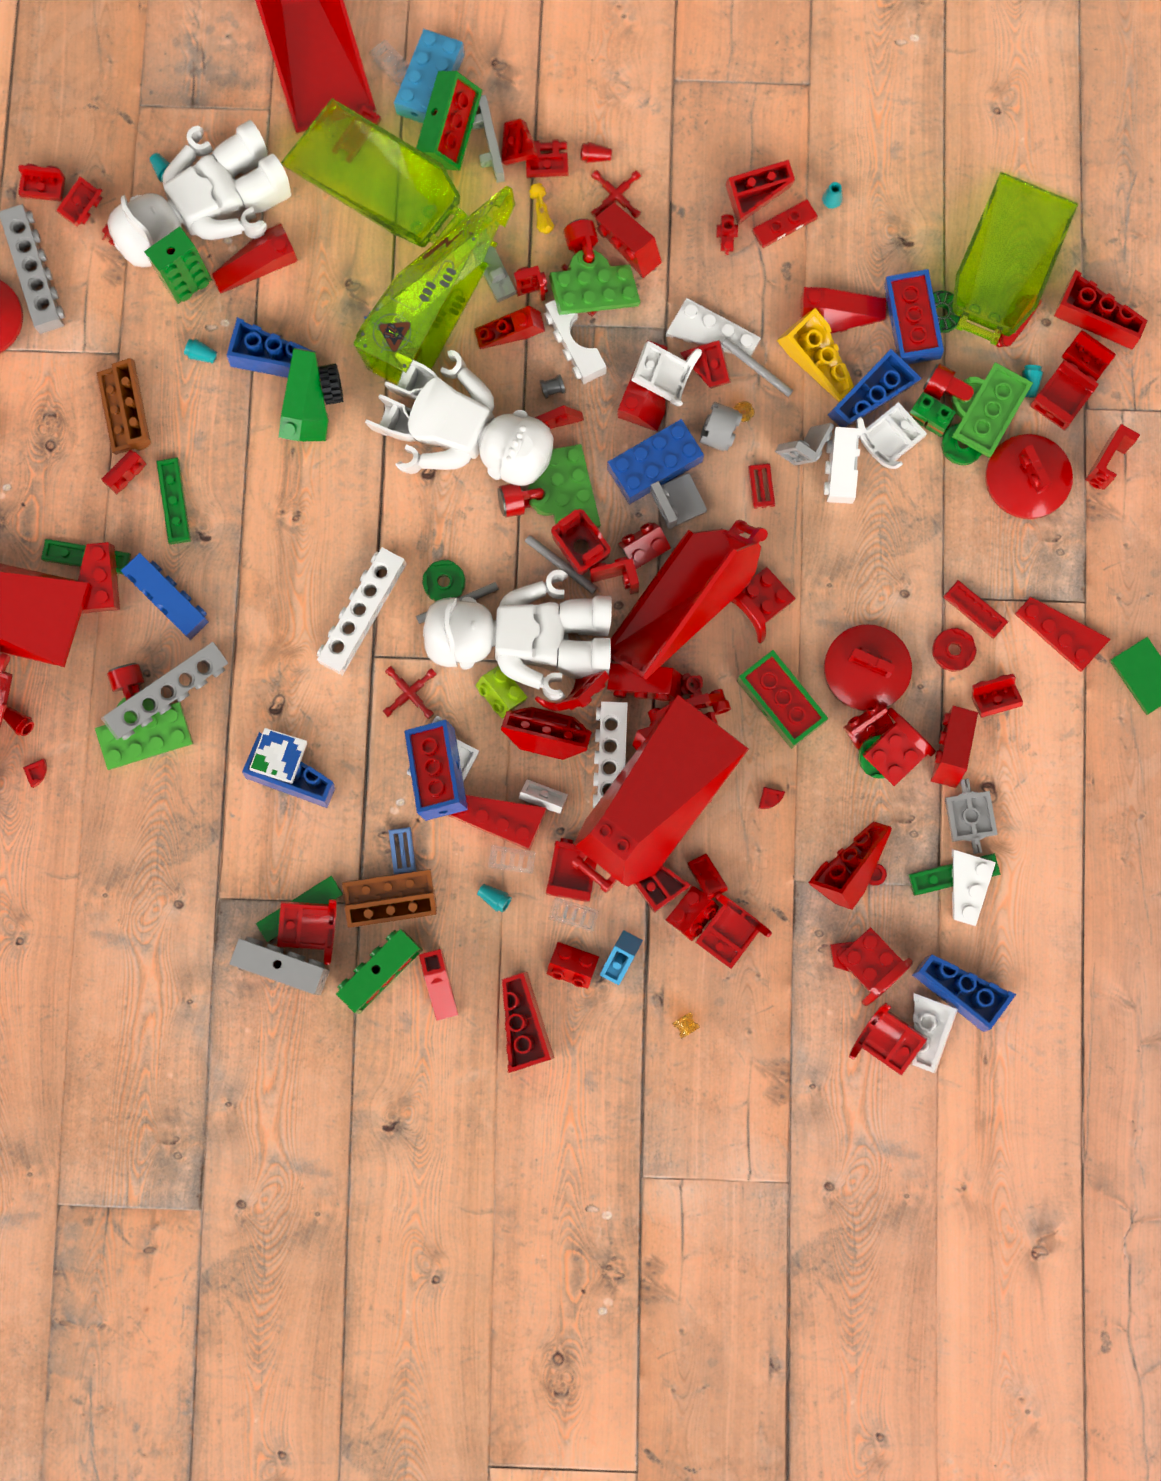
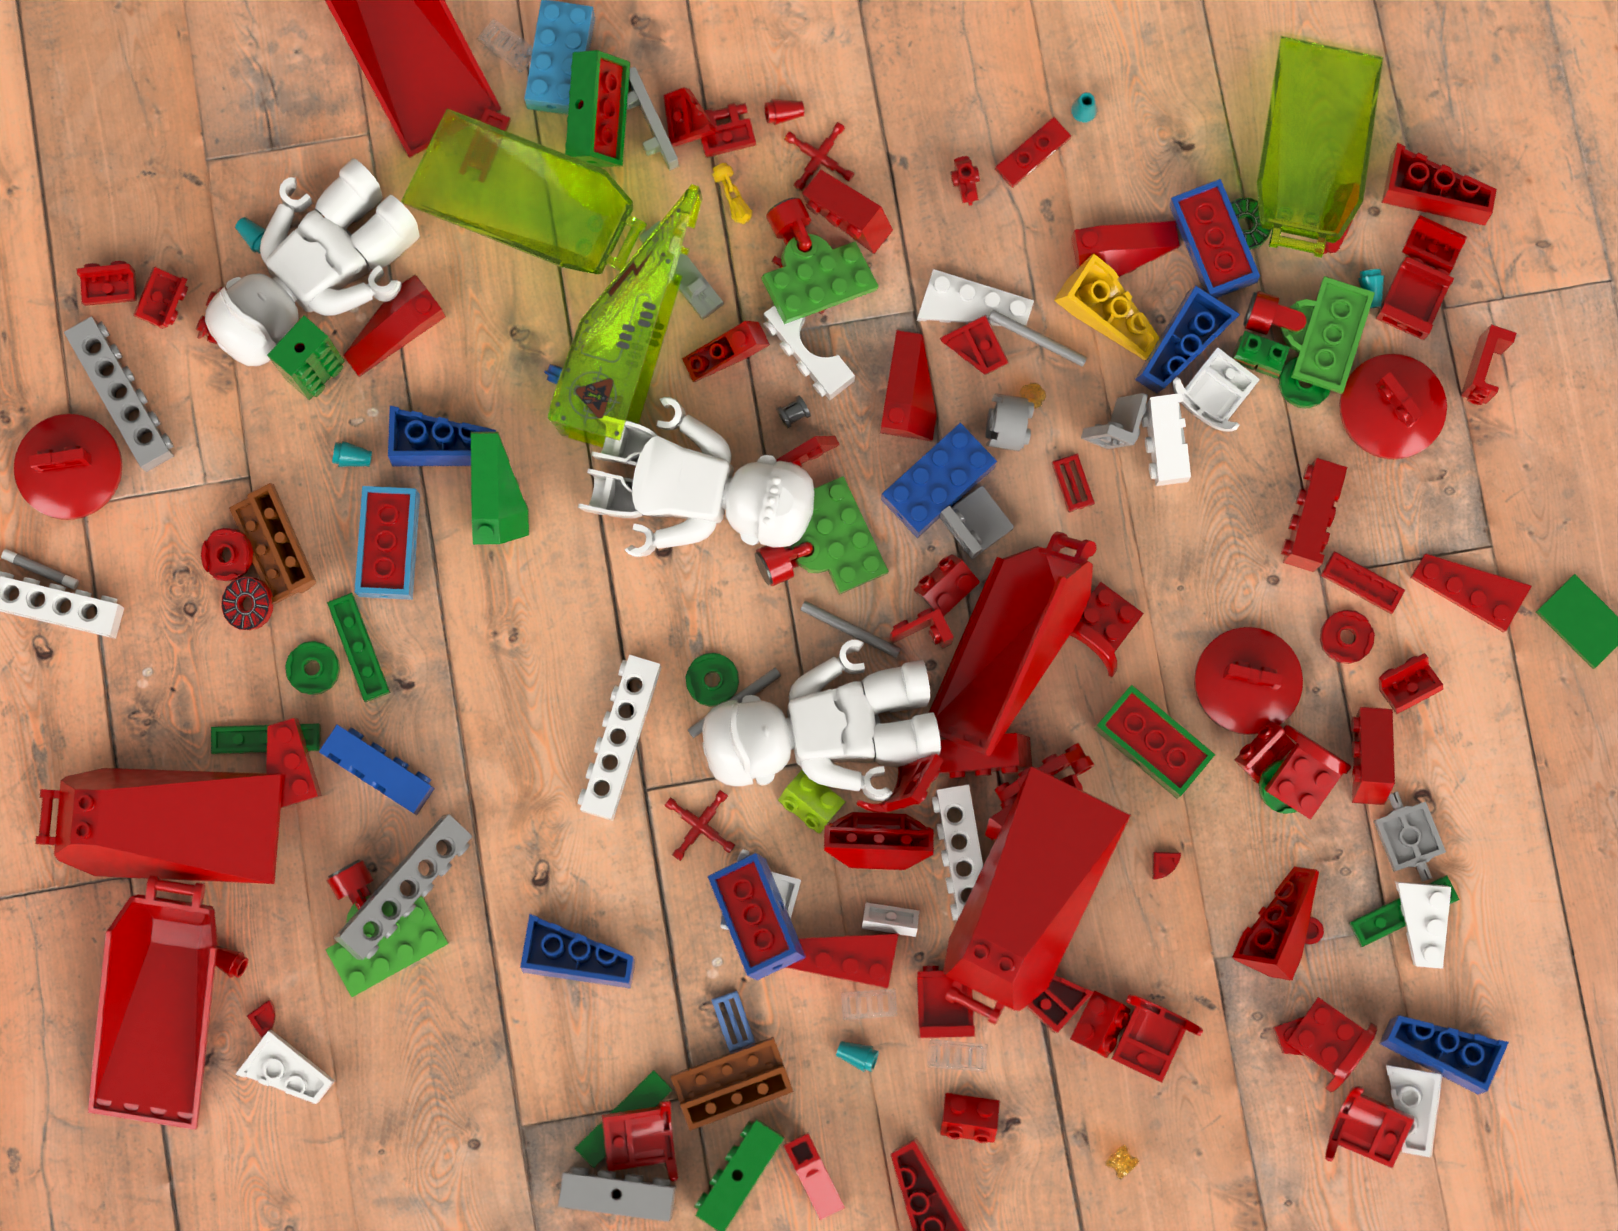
camera: 15 degrees left, 0 degrees up
(43, 813) = (285, 1068): none -> white wing
(84, 445) = (233, 603): none -> tile
(97, 410) = (240, 558): none -> red tile
(124, 471) = (289, 624): red bracket -> none
(140, 520) = (317, 683): none -> green tile
(212, 423) = (387, 542): none -> red brick
(278, 755) = (560, 938): tile -> none
(331, 384) = (523, 464): black tyre -> none
(530, 280) = (737, 287): red bracket -> none
(578, 527) = (868, 581): red piece -> none
(621, 957) = (1026, 1096): dark azure slope -> none
(664, 372) = (926, 368): white piece -> none
(697, 684) = (1047, 742): red plate -> none
(707, 876) = (1109, 976): red plate -> none
(757, 188) = (990, 117): red wedge -> none
(948, 549) = (1314, 515): none -> red wedge

